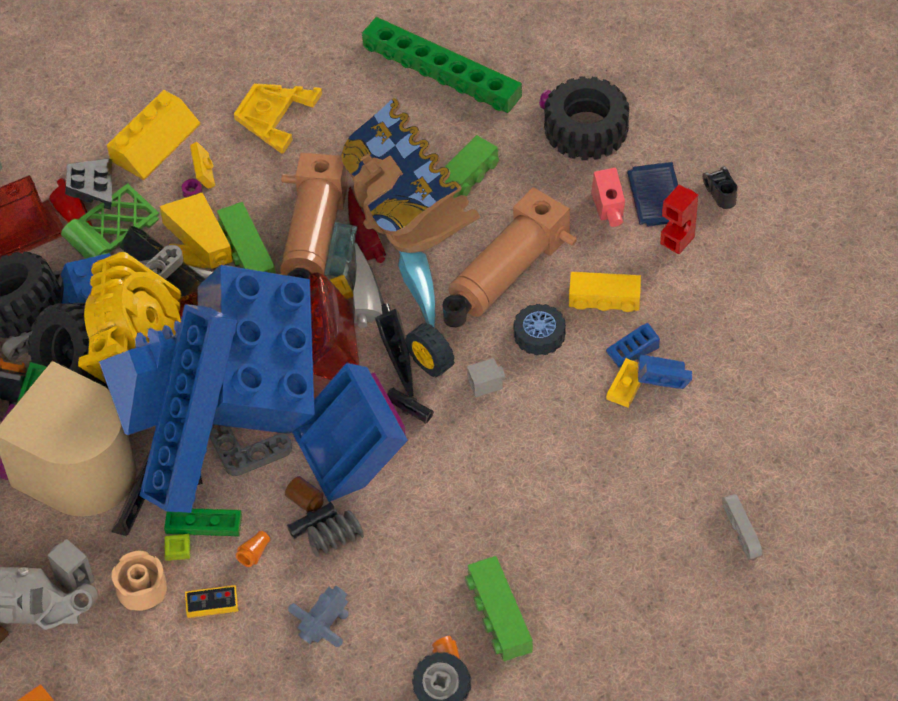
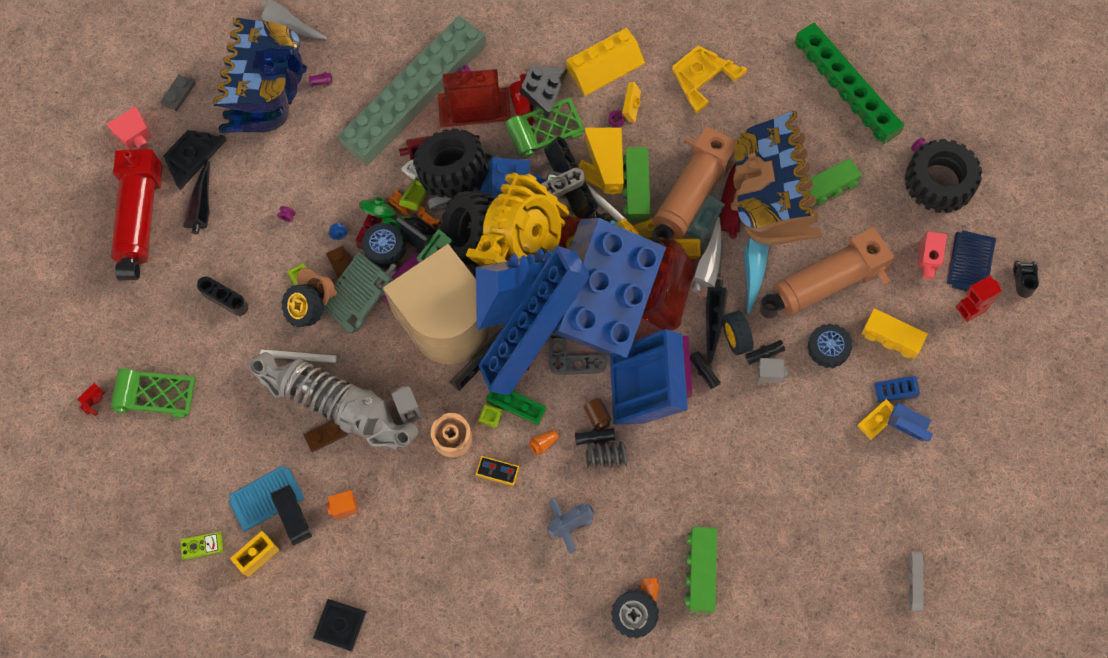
camera: 25 degrees right, 15 degrees up
(474, 357) = (765, 352): none -> black pin

